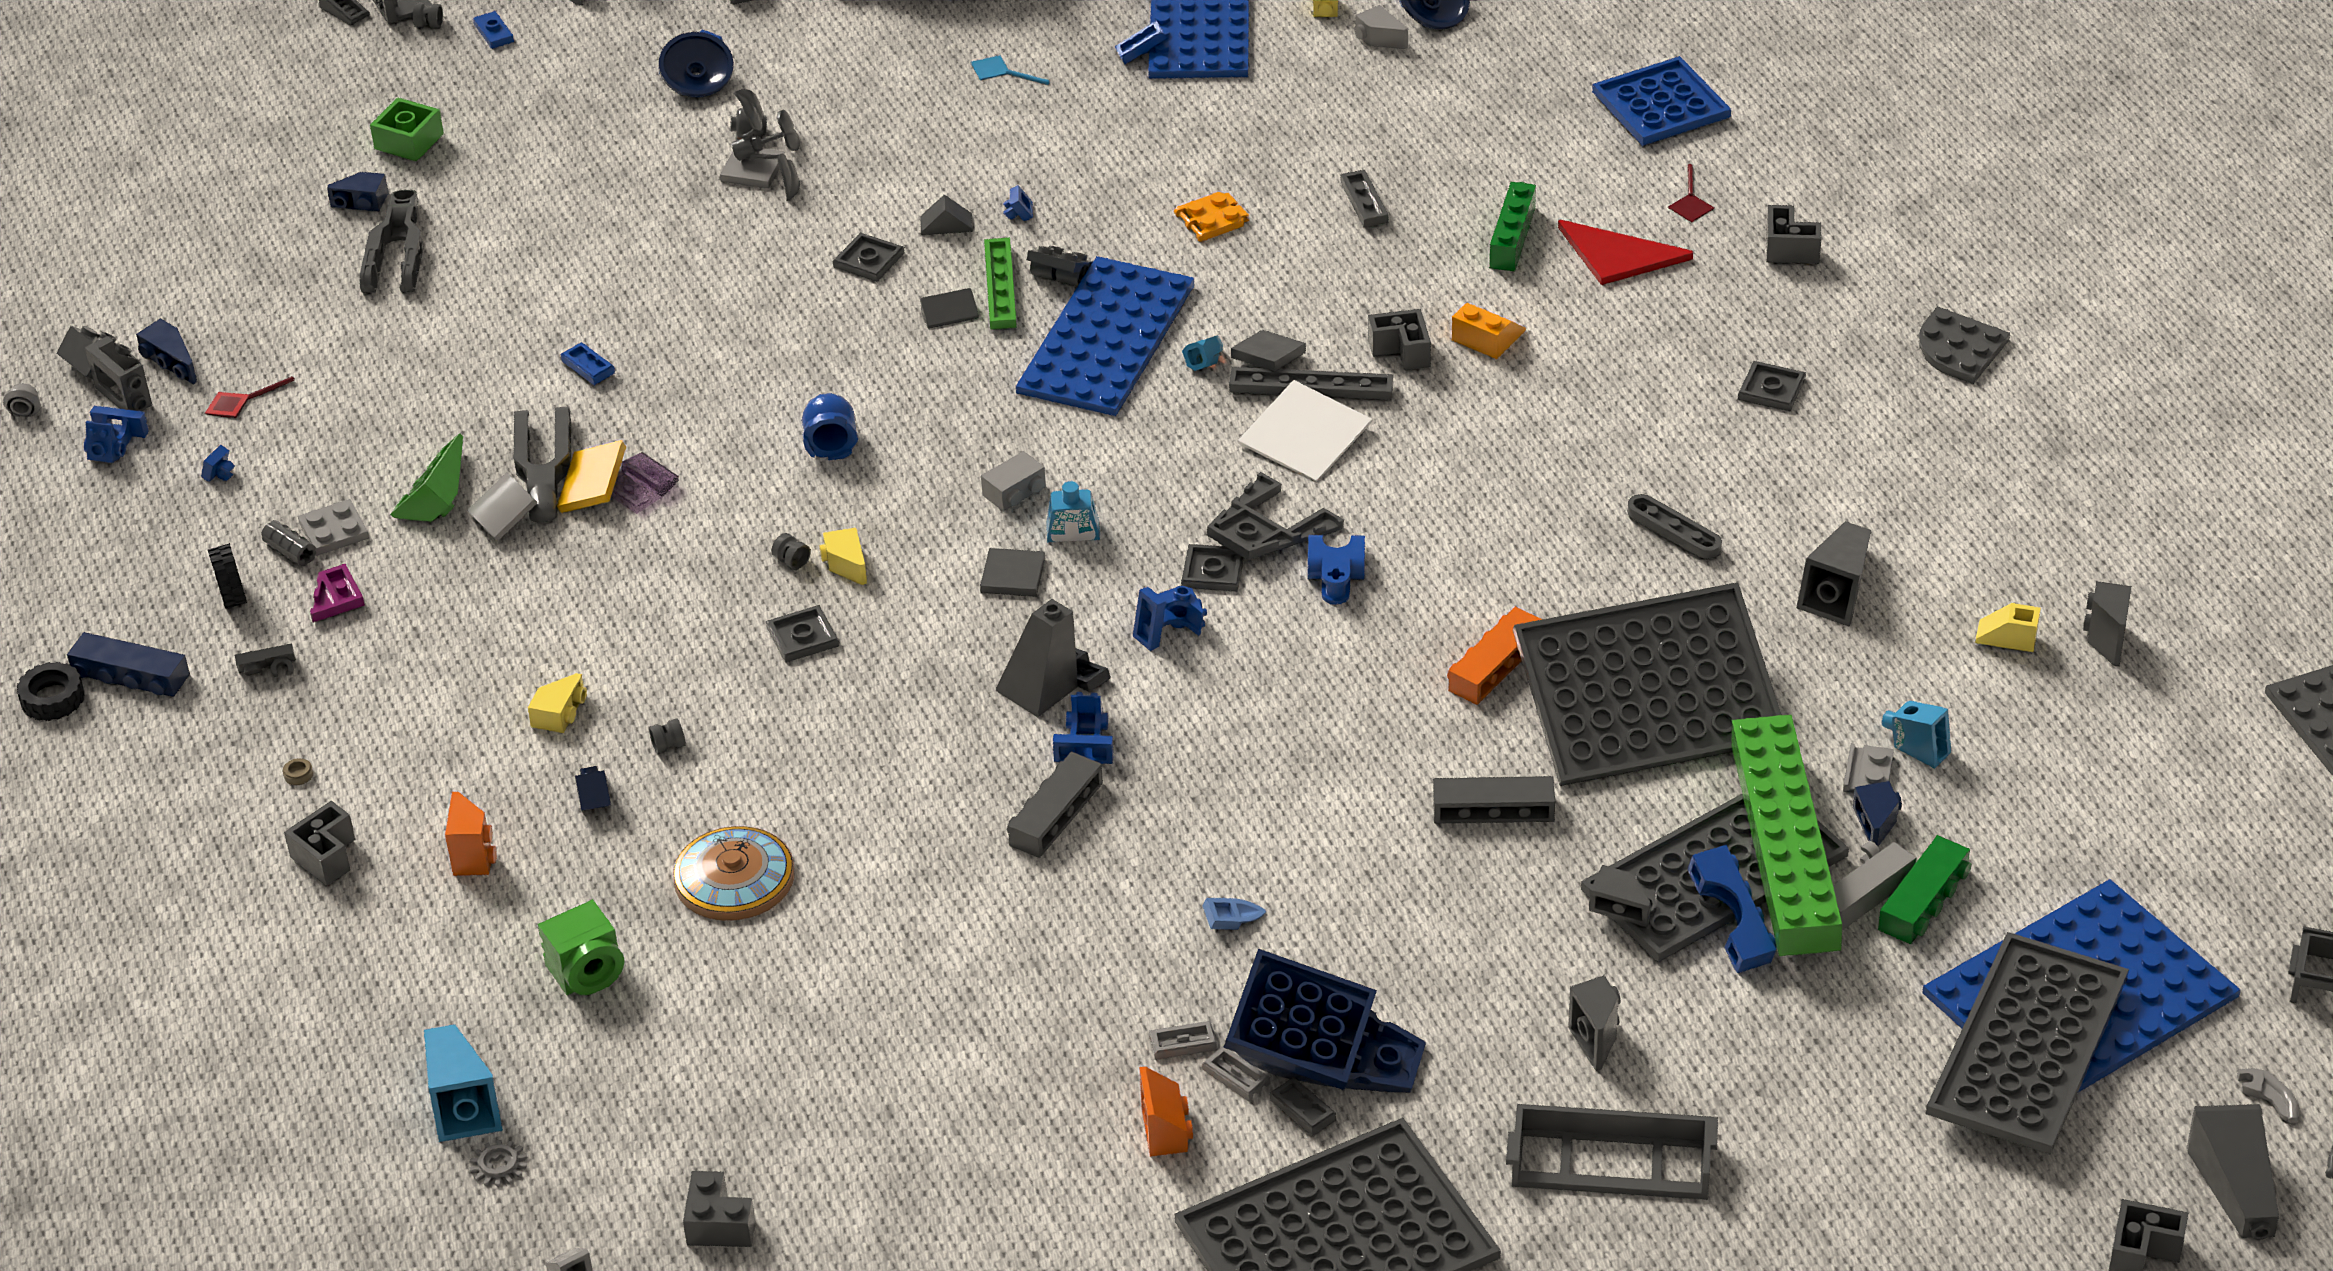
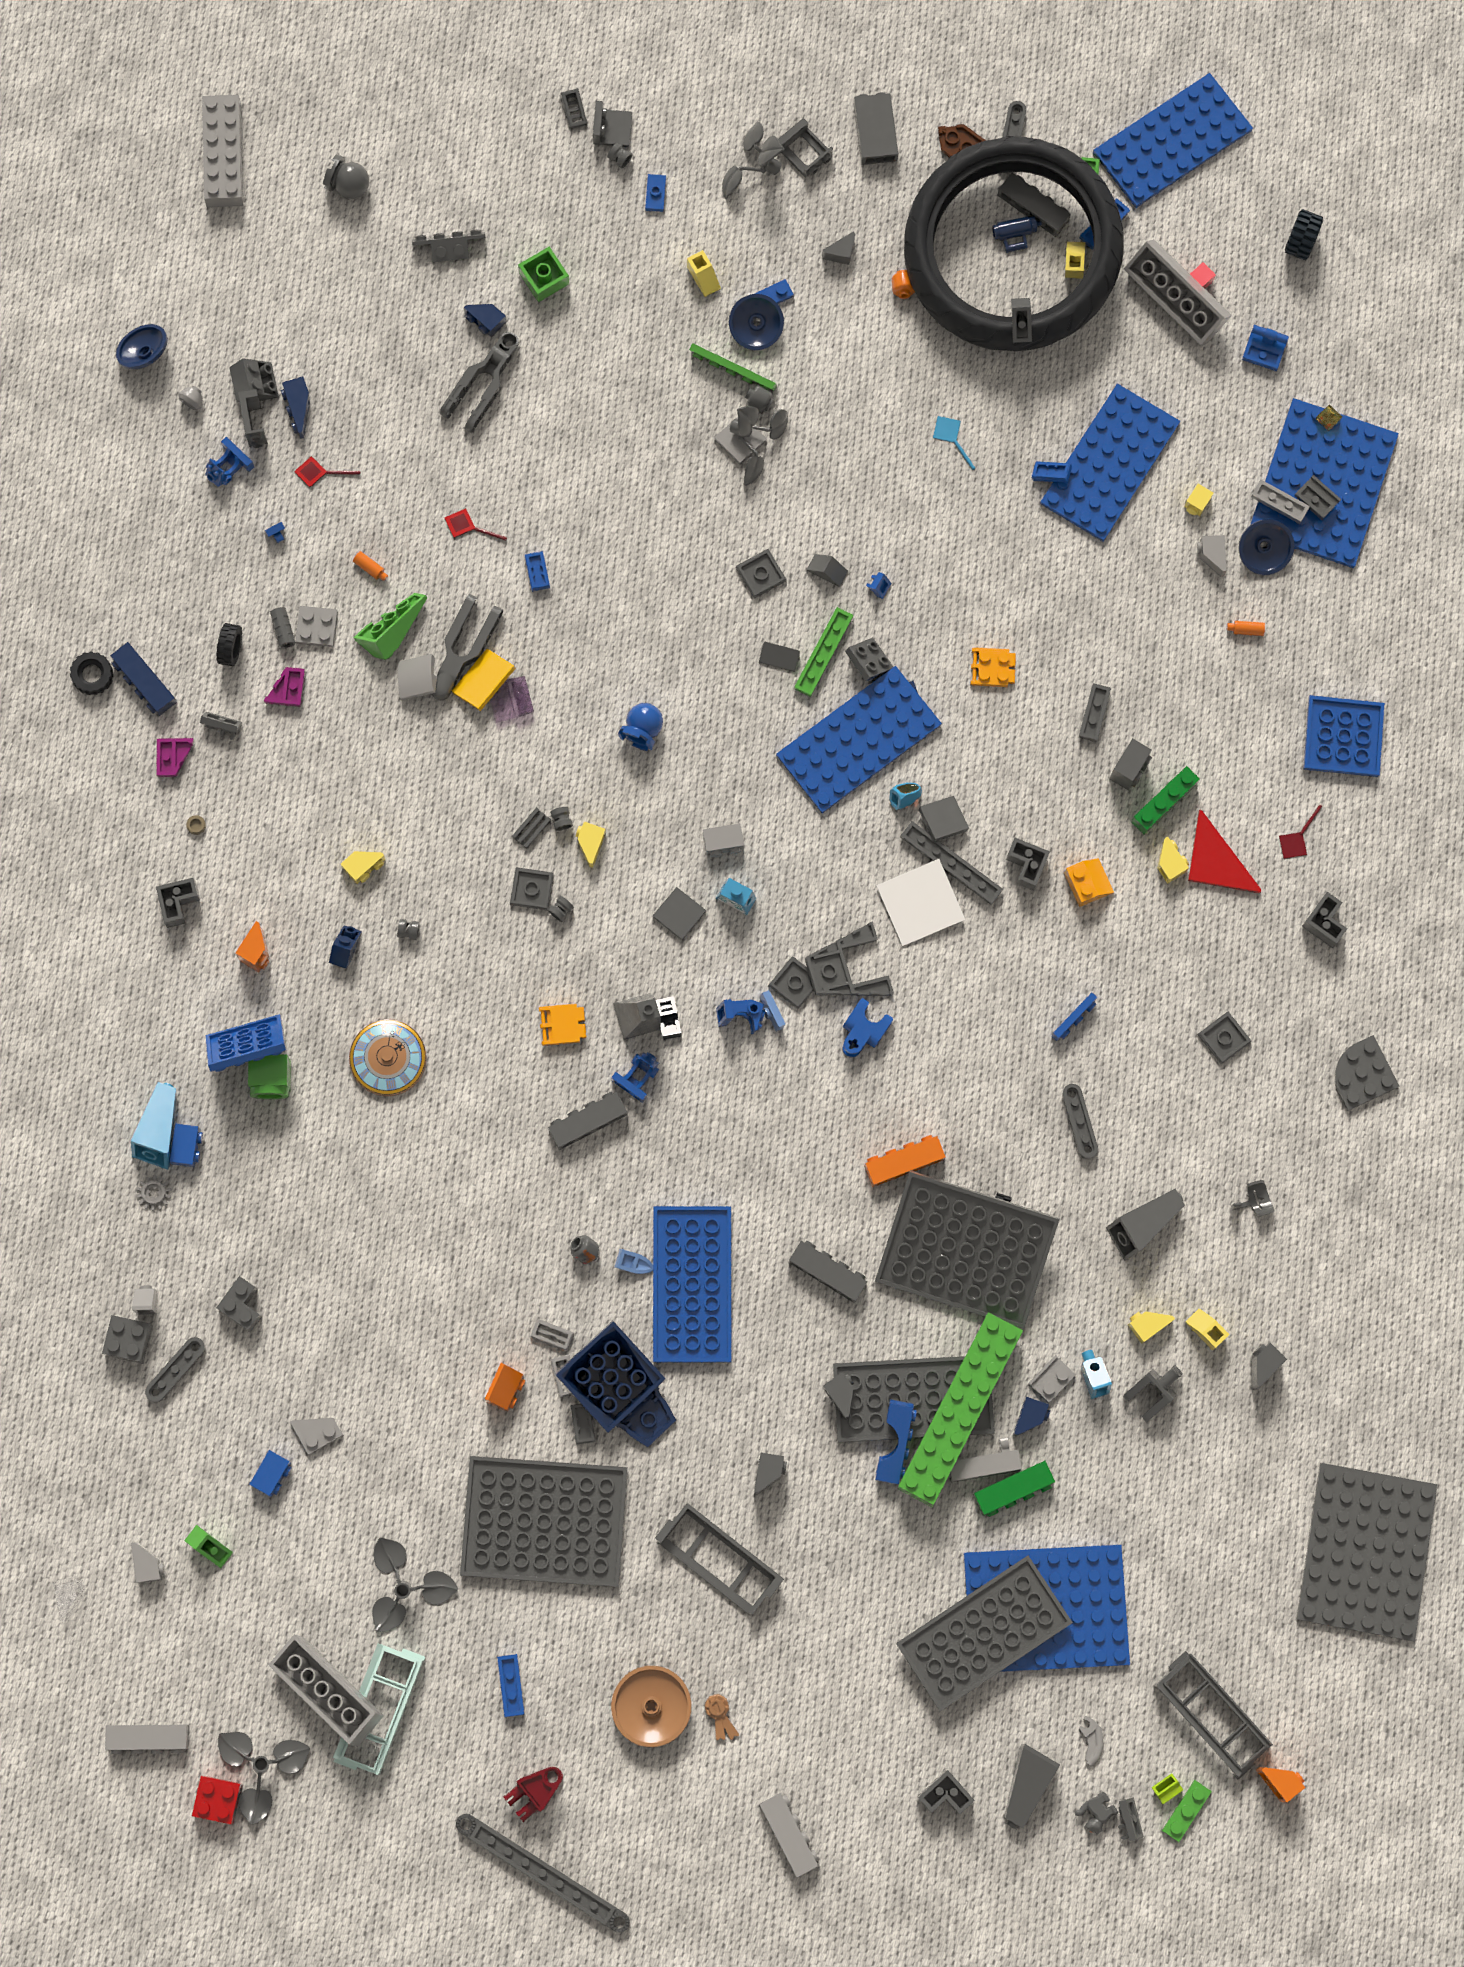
camera: 25 degrees right, 35 degrees up
(103, 147) = (348, 178): none -> dark grey tile
(217, 718) = (171, 755): none -> magenta wing
(270, 159) = (449, 247): none -> dark grey bracket
(366, 446) = (370, 566): none -> orange cylinder
(458, 368) = (461, 523): none -> piece
(514, 1089) = (185, 1145): none -> blue brick
(525, 921) = (245, 1043): none -> blue plate
(600, 56) = (703, 273): none -> light yellow slope
(685, 113) = (731, 368): none -> bright green plate
(760, 566) = (541, 816): none -> dark grey tile
(856, 629) = (560, 908): none -> dark grey wheel
(945, 733) = (562, 1024): none -> light orange plate
(1156, 925) = (584, 1249): none -> dark grey head
(1216, 601) = (772, 1011): none -> medium blue plate
(1329, 896) = (691, 1284): none -> blue plate
(1447, 209) = (1129, 767): none -> dark grey brick
(1472, 68) = (1247, 628): none -> orange cylinder
(1567, 271) = (1170, 862): none -> light yellow slope
(1582, 441) = (1075, 1017): none -> blue plate
(1935, 659) = (1148, 1324): none -> light yellow slope
(1938, 490) = (1261, 1192): none -> dark grey helmet
(2008, 698) = (1163, 1383): none -> dark grey piece

